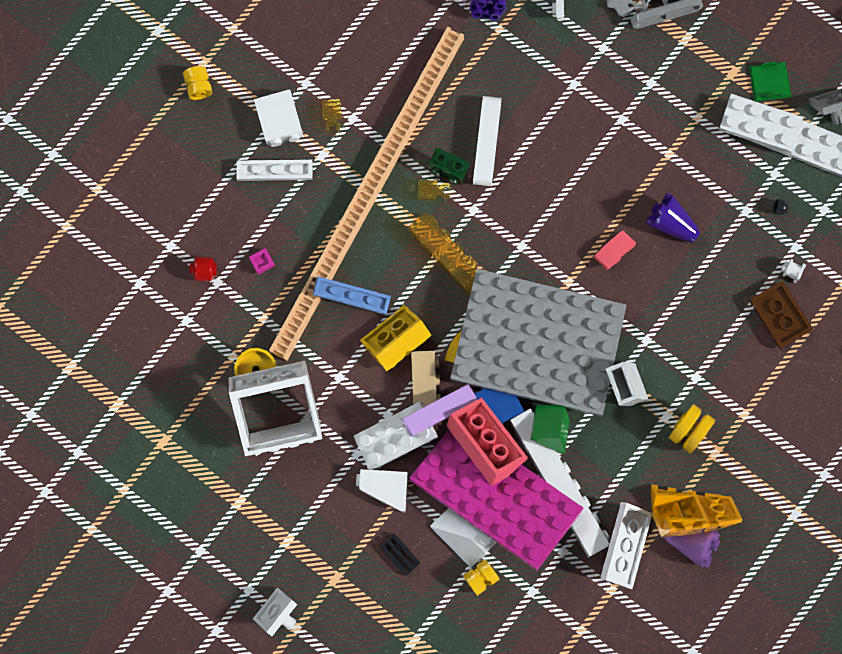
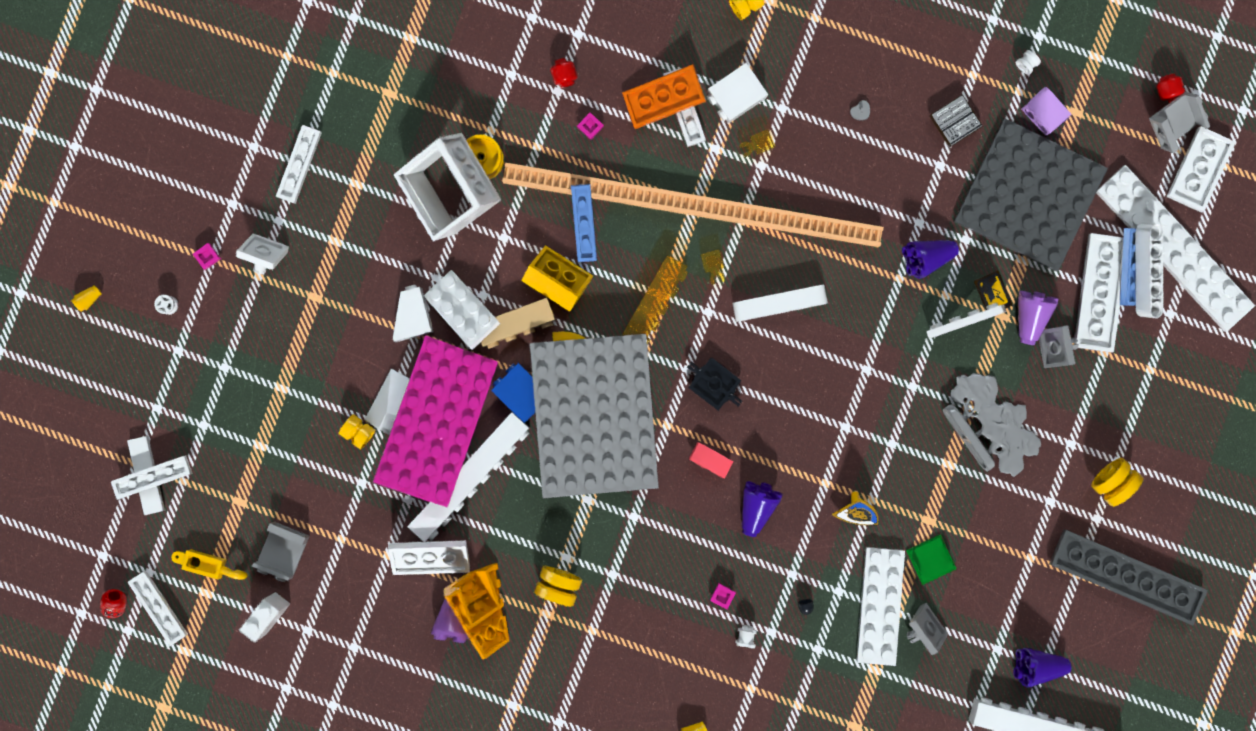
camera: 65 degrees right, 10 degrees up
(201, 550) = (298, 164): none -> white plate
(258, 184) = (664, 96): none -> orange tile
(333, 14) = (861, 111): none -> light grey piece
(389, 542) = (347, 364): black tile -> none
(438, 410) = (495, 343): lavender tile -> none
(448, 166) = (742, 273): dark green bracket -> none
(486, 441) = (480, 396): coral slope -> none
(543, 224) = (714, 384): none -> black plate
(551, 427) = (516, 452): green slope -> none
(626, 384) = (580, 512): white brick -> none
(706, 131) = (858, 512): none -> shield
(747, 280) = (722, 596): none -> dark pink plate
(761, 123) = (883, 564): white plate -> none
(781, 314) = (698, 637): reddish brown plate -> none

